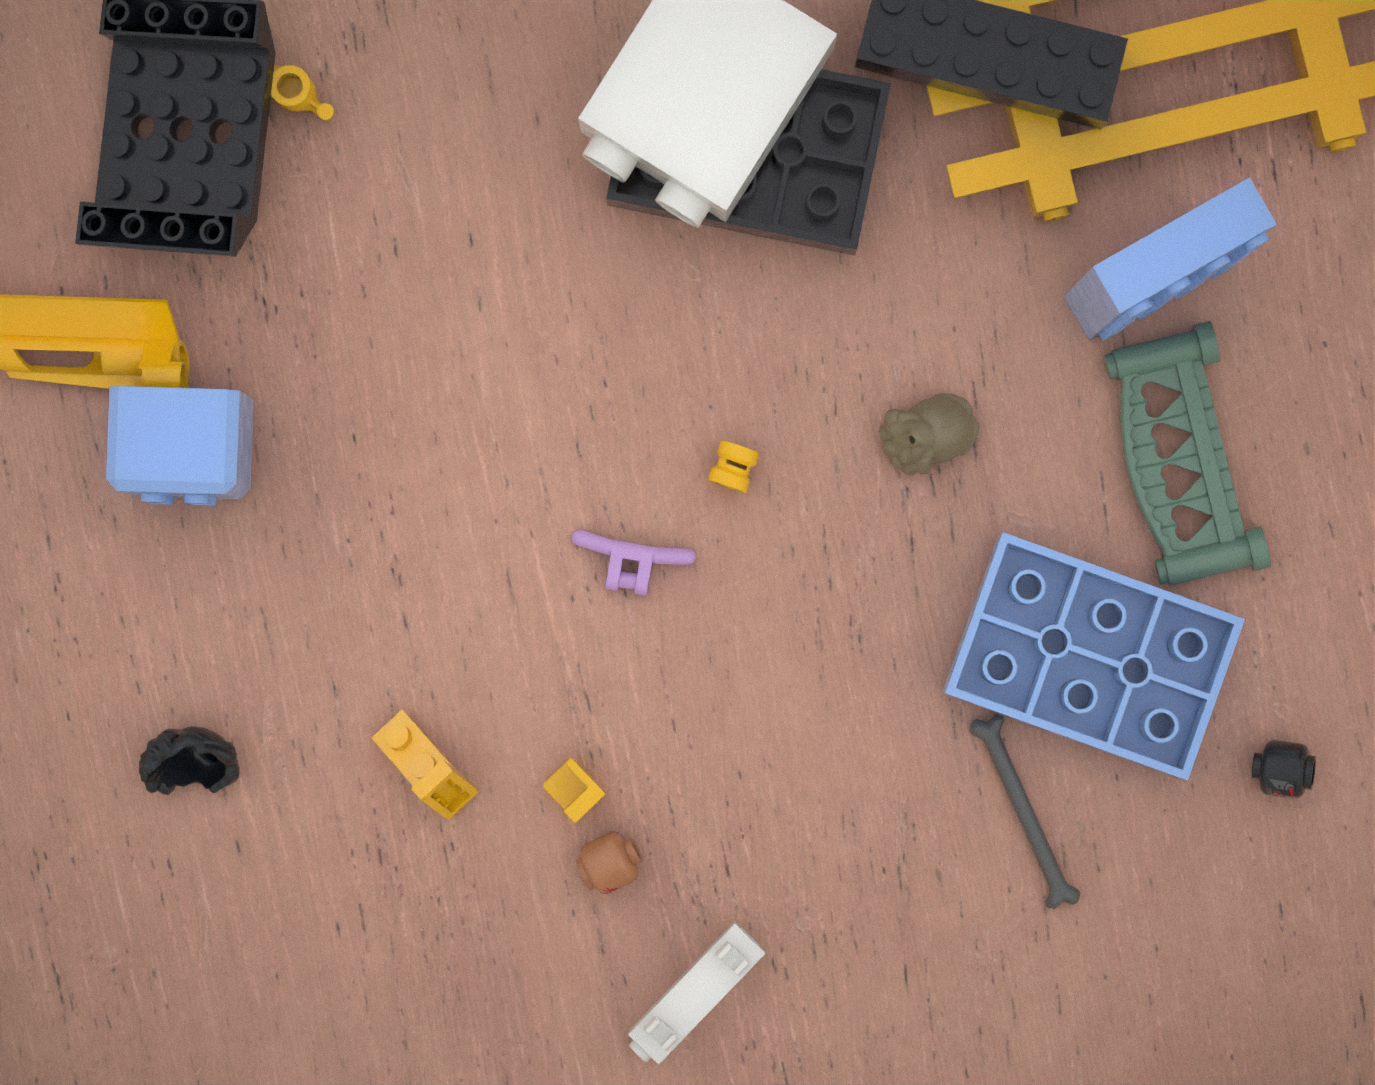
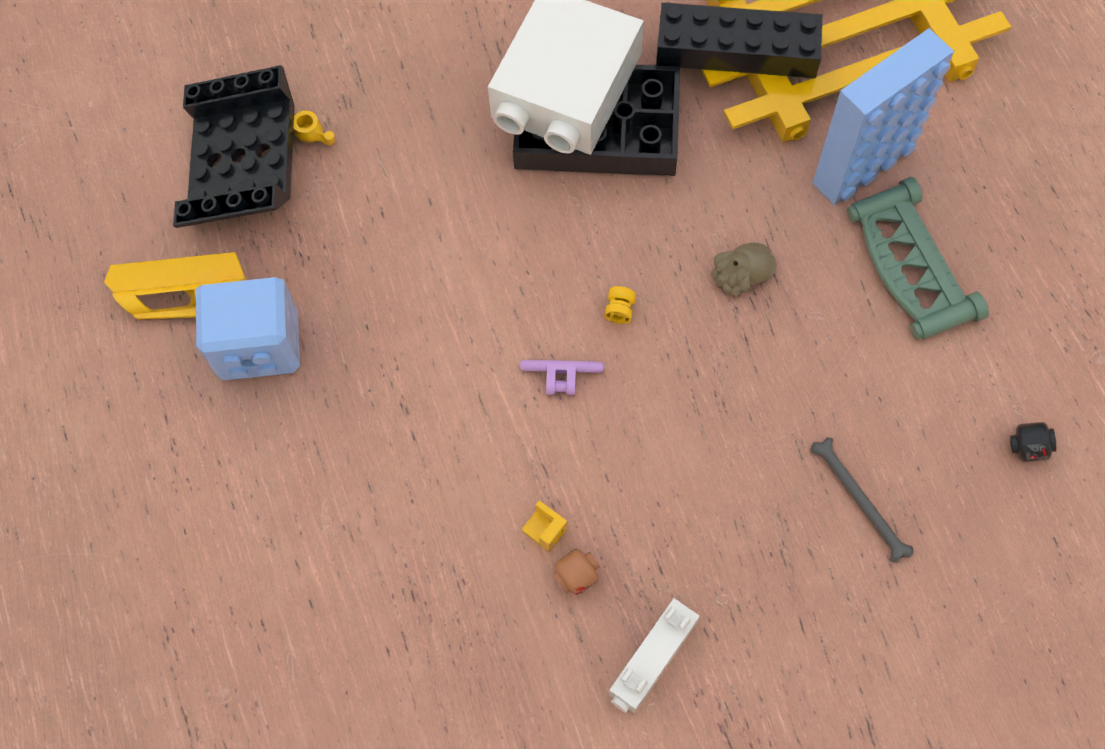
camera: 10 degrees left, 20 degrees down
(188, 758) = (269, 542): black hair -> none
(424, 766) = (439, 524): yellow bracket -> none
(1093, 656) = (886, 386): light blue brick -> none

